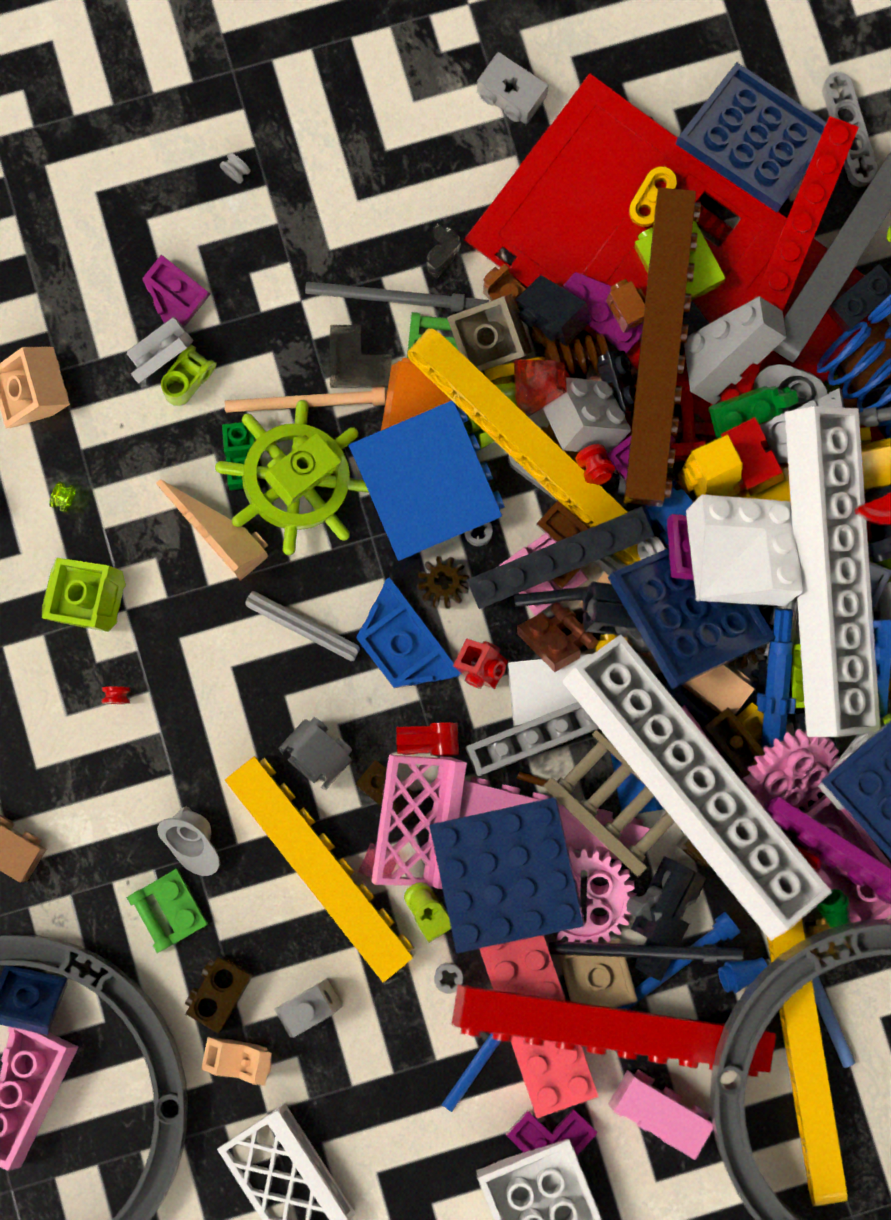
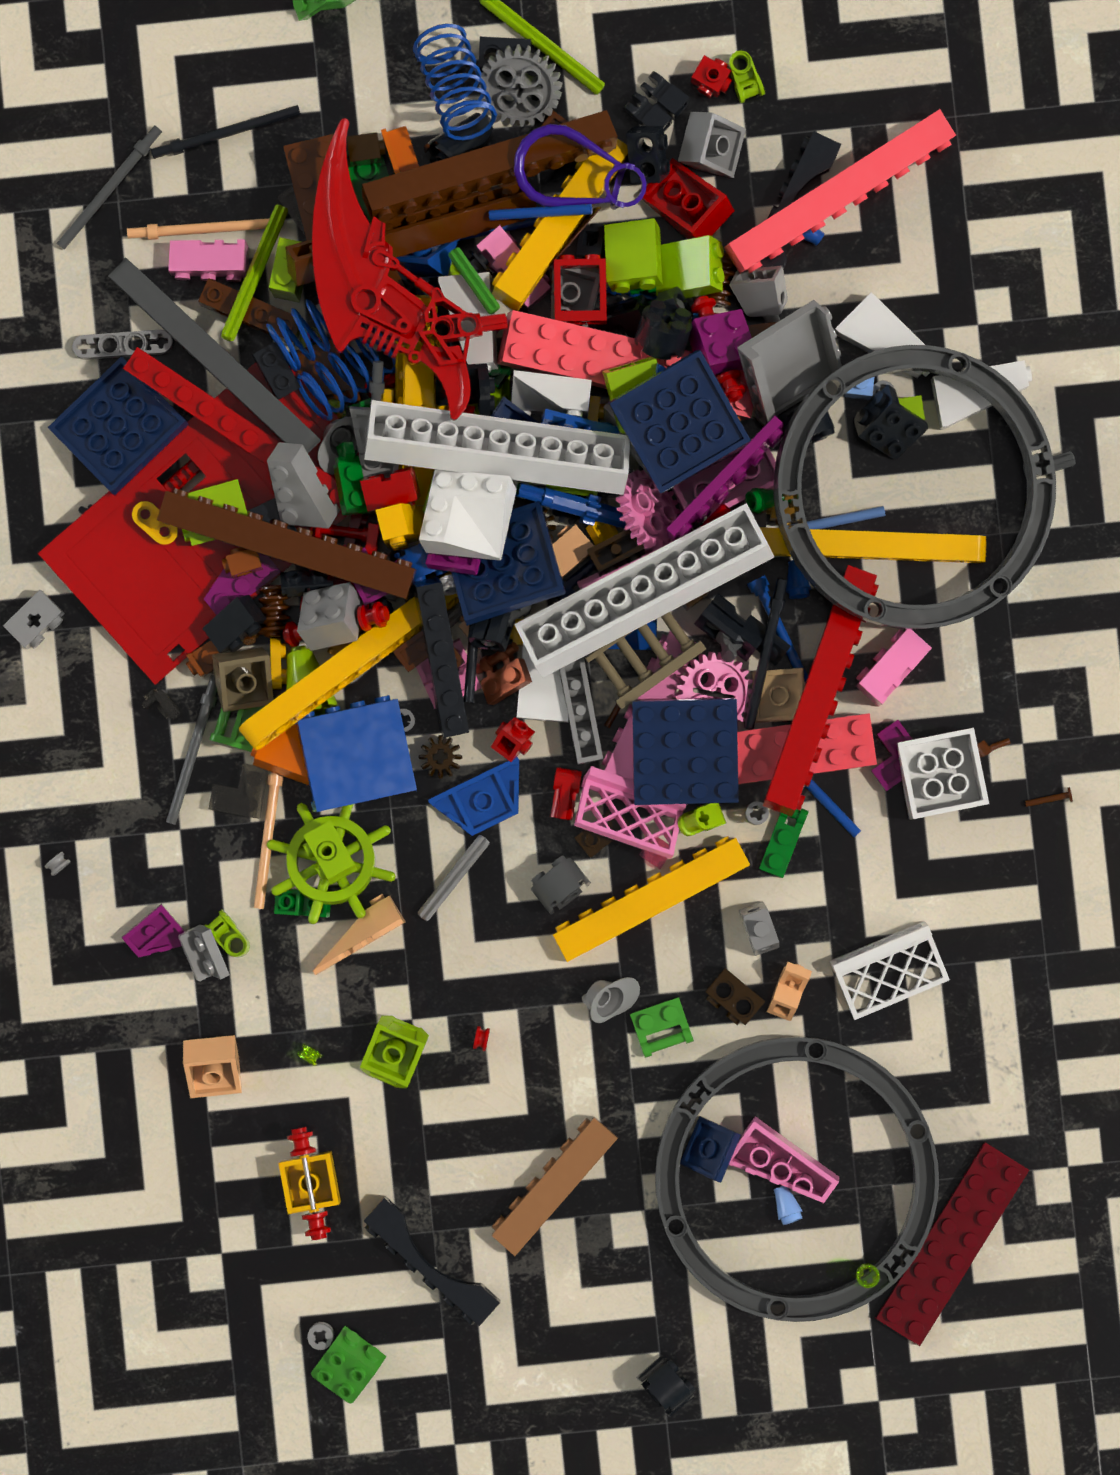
camera: 75 degrees left, 5 degrees up
(416, 1017) = (782, 843): none -> green plate
(538, 383) = (297, 649): clear red wing -> none

